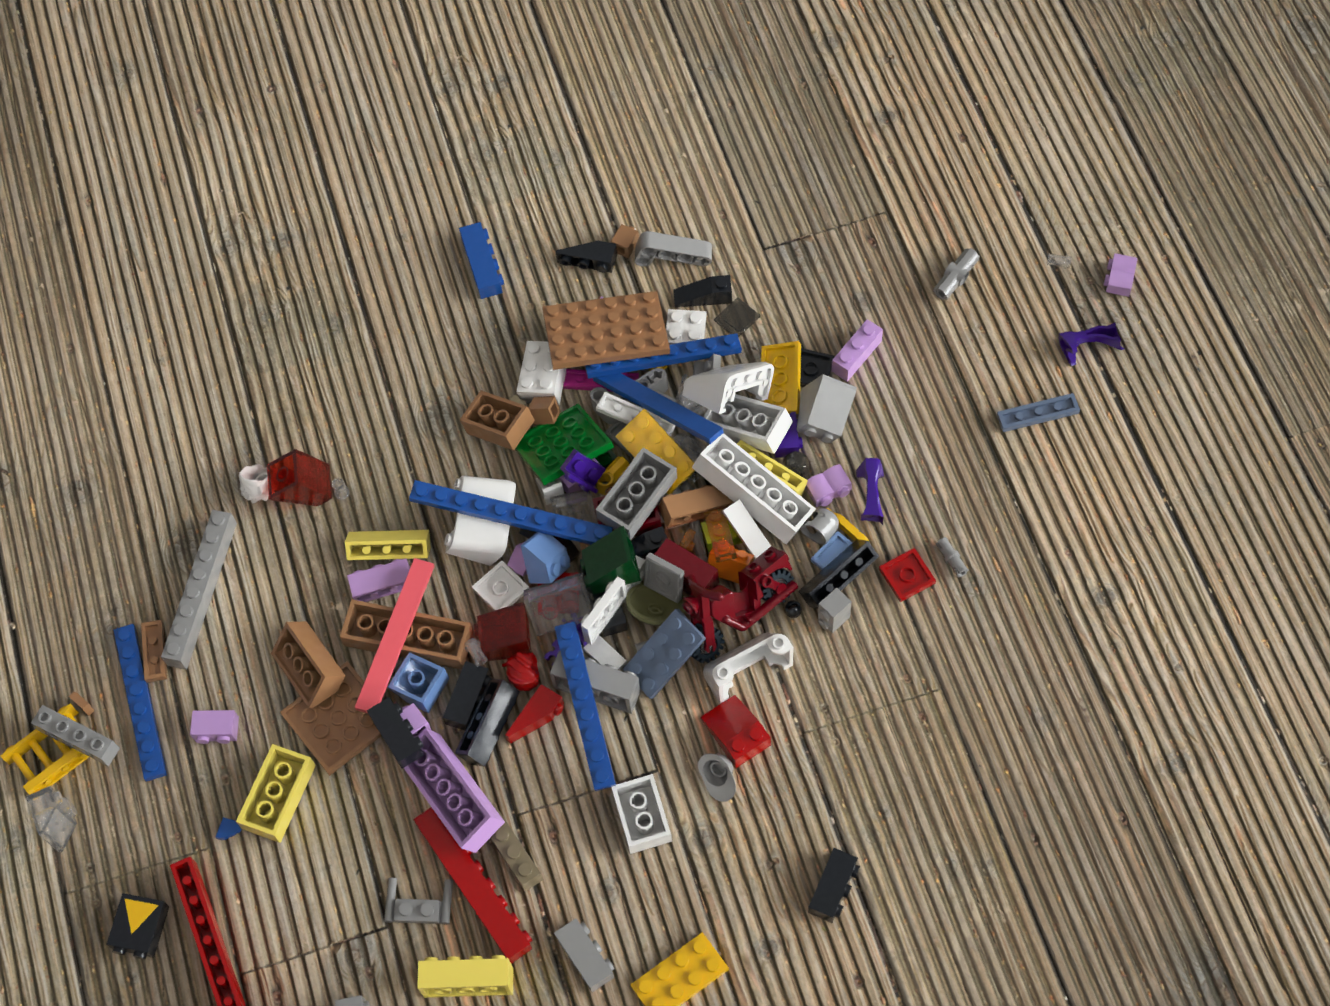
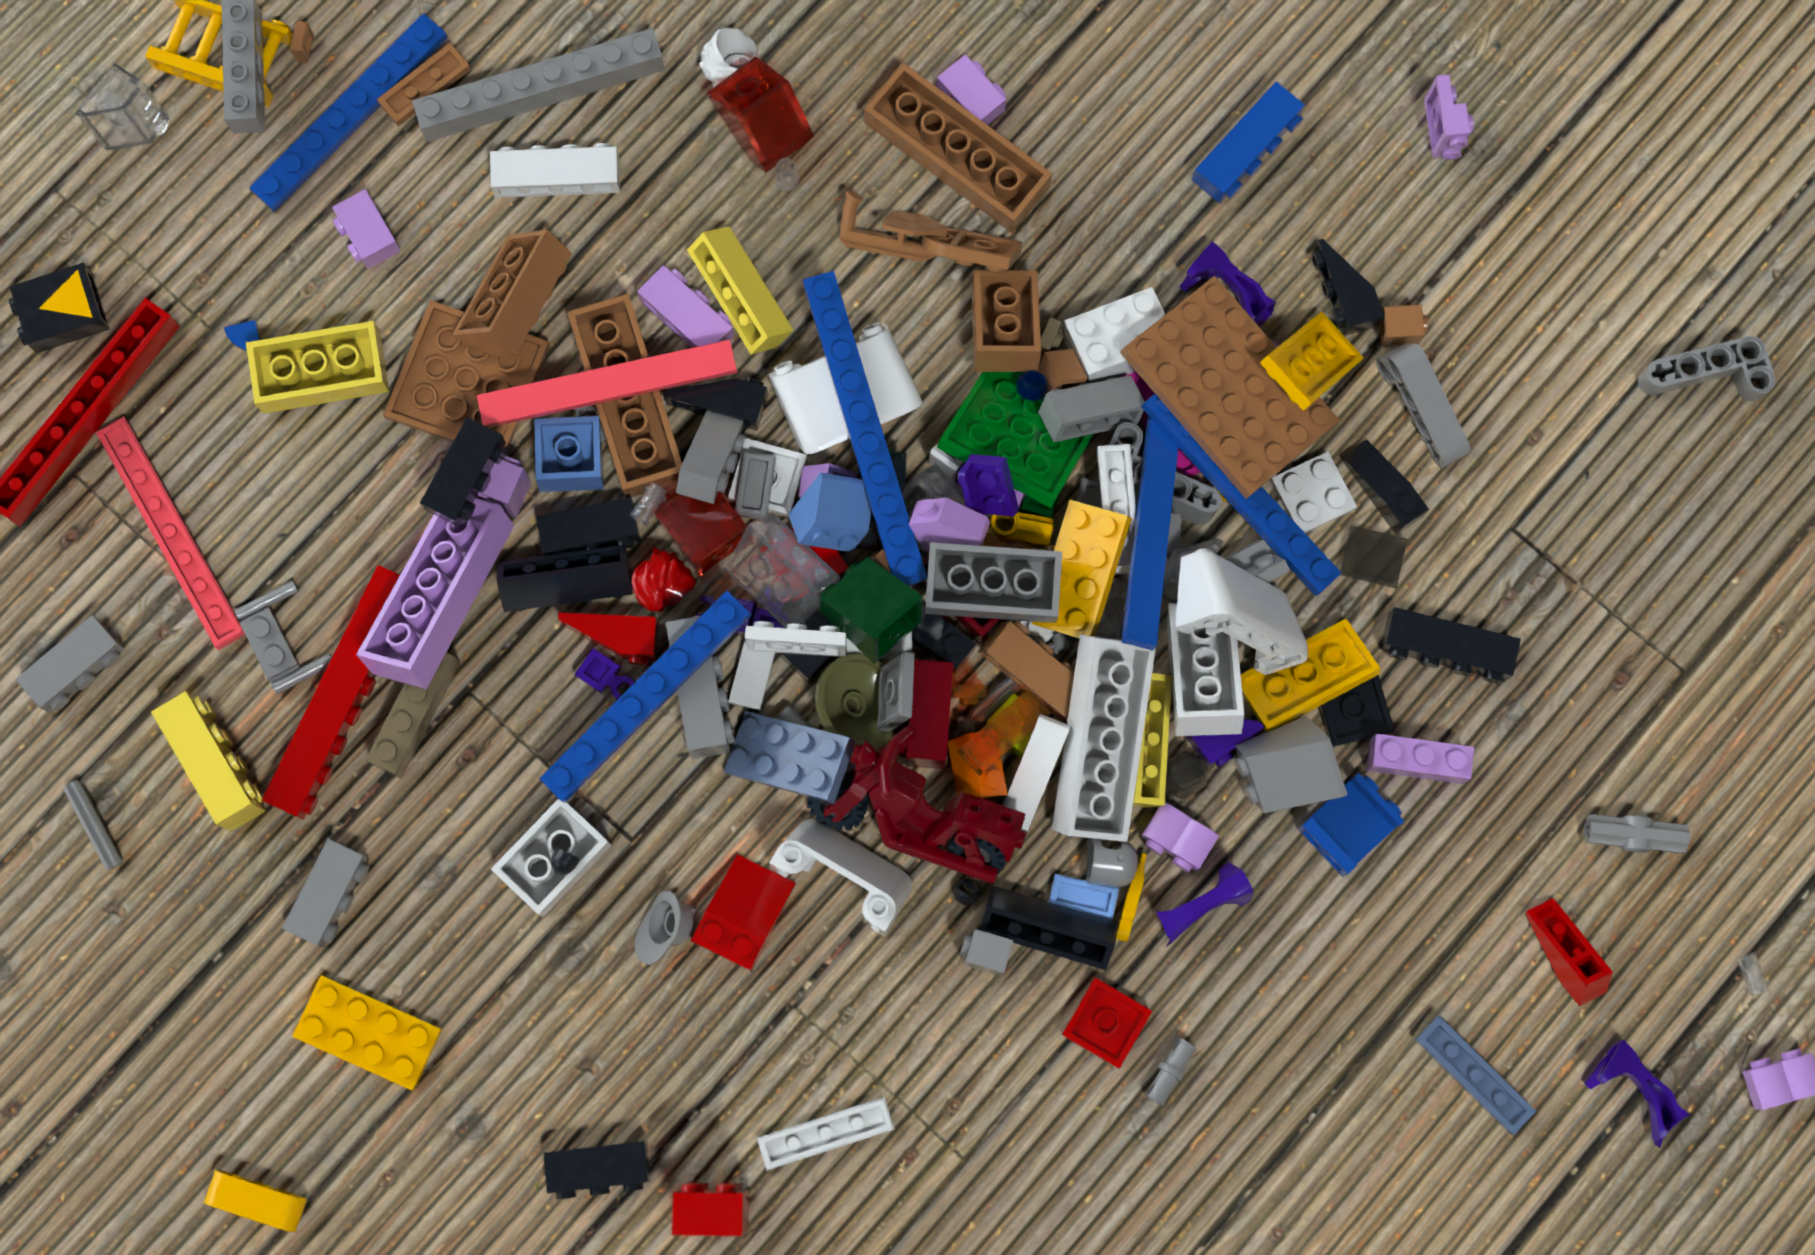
camera: 50 degrees right, 15 degrees up
(253, 607) = (555, 171): none -> white brick
(314, 934) = (171, 533): none -> coral tile
(361, 375) = (970, 88): none -> lavender brick
(386, 396) = (957, 147): none -> medium nougat brick
(429, 433) = (938, 240): none -> medium nougat plate
(445, 584) = (729, 397): none -> black slope
(472, 605) = (711, 457): none -> light grey brick
(500, 592) = (755, 485): none -> light grey tile
(533, 164) = (1447, 121): none -> lavender plate
(533, 308) = (1216, 263): none -> dark purple animal
(540, 426) = (1032, 385): none -> clear blue plate
(553, 734) = (601, 673): none -> dark purple plate
(571, 404) = (1091, 408): none -> light grey brick
(588, 499) = (947, 522): none -> lavender slope
(617, 286) = (1311, 360): none -> yellow plate
(649, 800) = (563, 861): none -> black hinge
(742, 103) = (1704, 370): none -> light grey beam
(805, 306) = (1450, 645): none -> black brick
(872, 401) = (1351, 825): none -> blue panel
(884, 753) = (825, 1133): none -> white tile
(895, 822) = (710, 1211): none -> red brick
(1000, 335) = (1569, 953): none -> red slope

